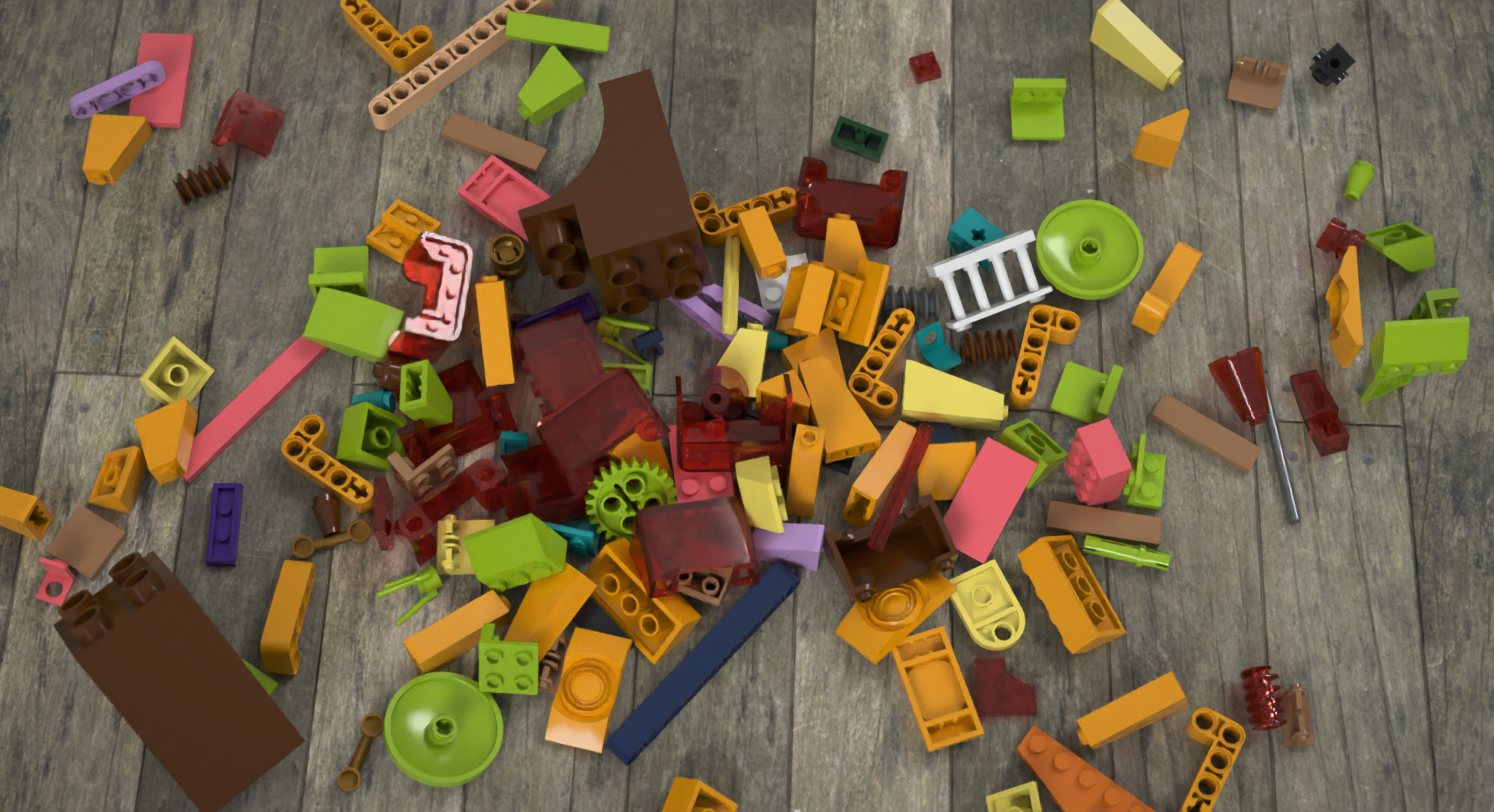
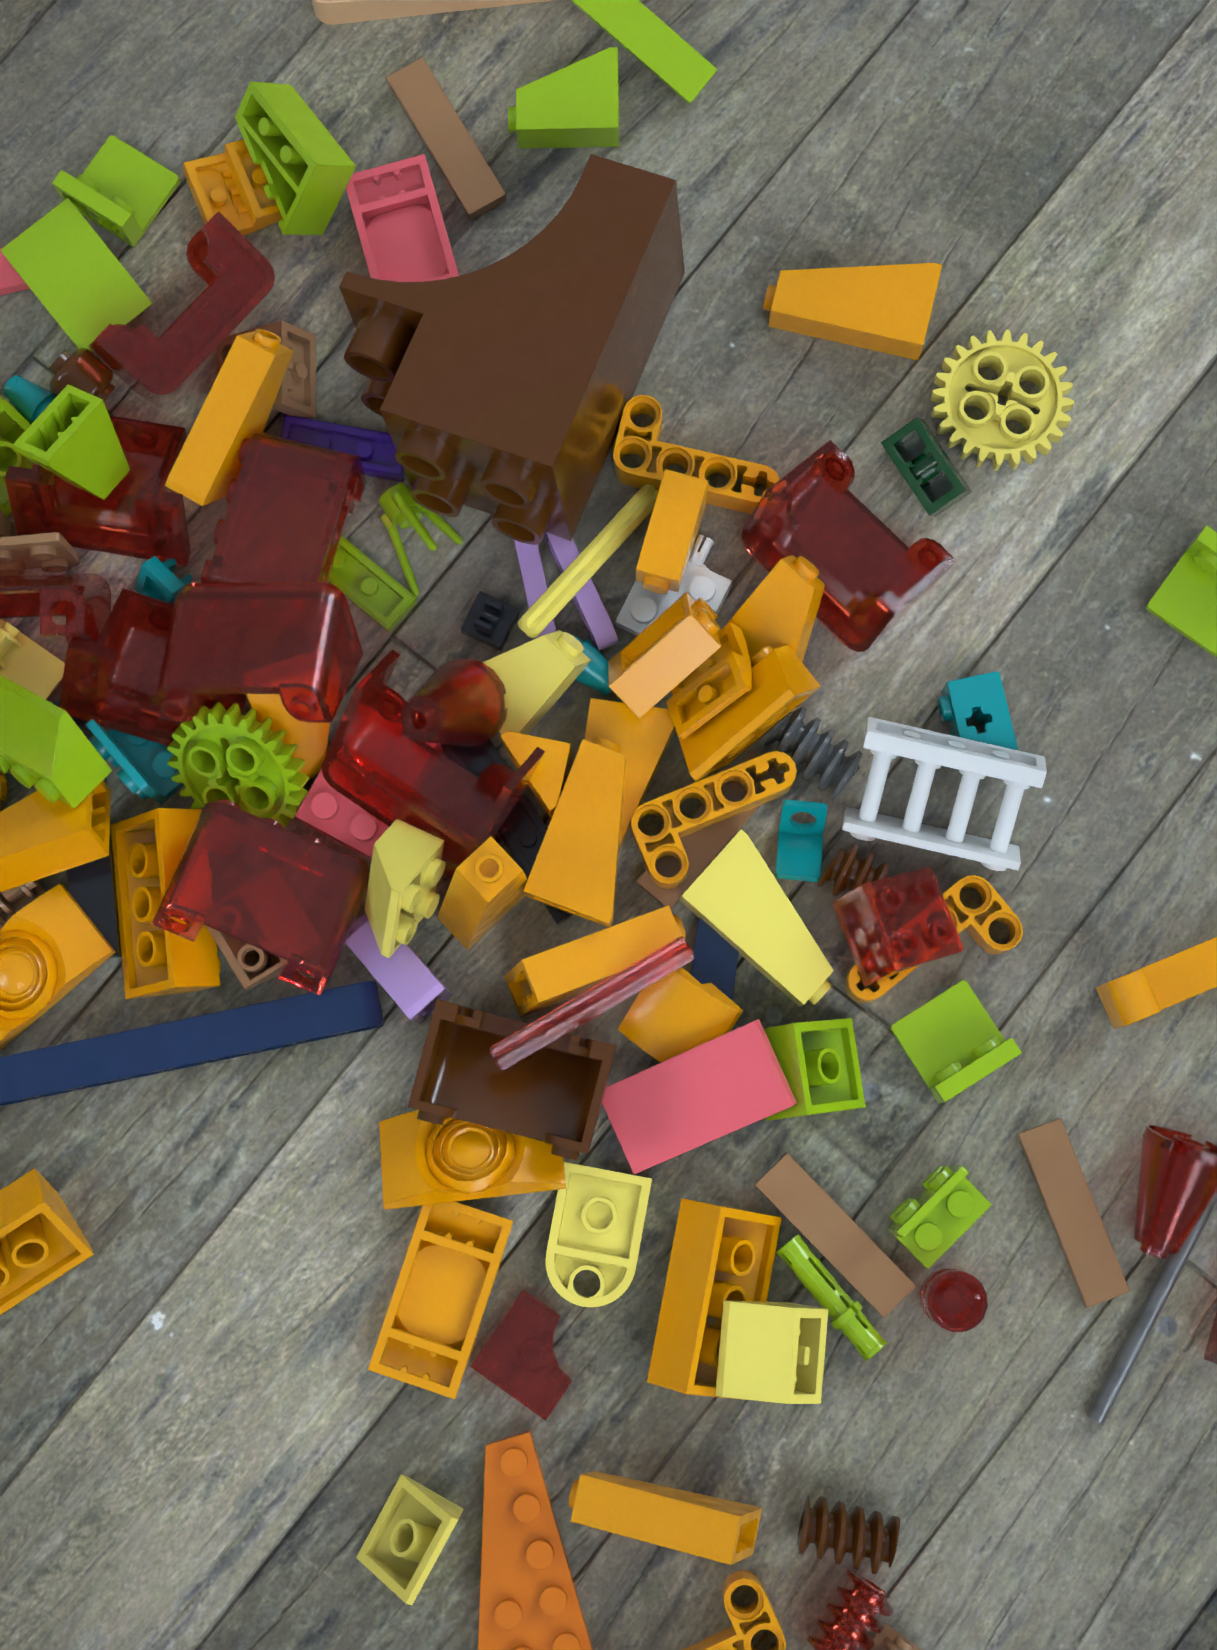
camera: 45 degrees right, 15 degrees up
(427, 194) = (297, 154): none -> lime wedge
(508, 257) = (330, 317): pearl gold wheel -> none
(648, 340) = (440, 562): dark blue tile -> none
(698, 352) = (490, 621): none -> black tile
(766, 90) = (858, 306): none -> light orange slope
(869, 89) = (1013, 364): none -> light yellow gear
(925, 67) = (1107, 419): clear red tile -> none
(1016, 351) = (897, 924): none -> clear red bracket
(1089, 249) = (1118, 846): lime dish -> none
(1097, 464) = (874, 1160): coral brick -> none
(1121, 592) = (772, 1352): none -> light yellow slope
(1185, 508) = (953, 1299): none -> clear red wheel
(1226, 654) = (848, 1534): none -> reddish brown piece

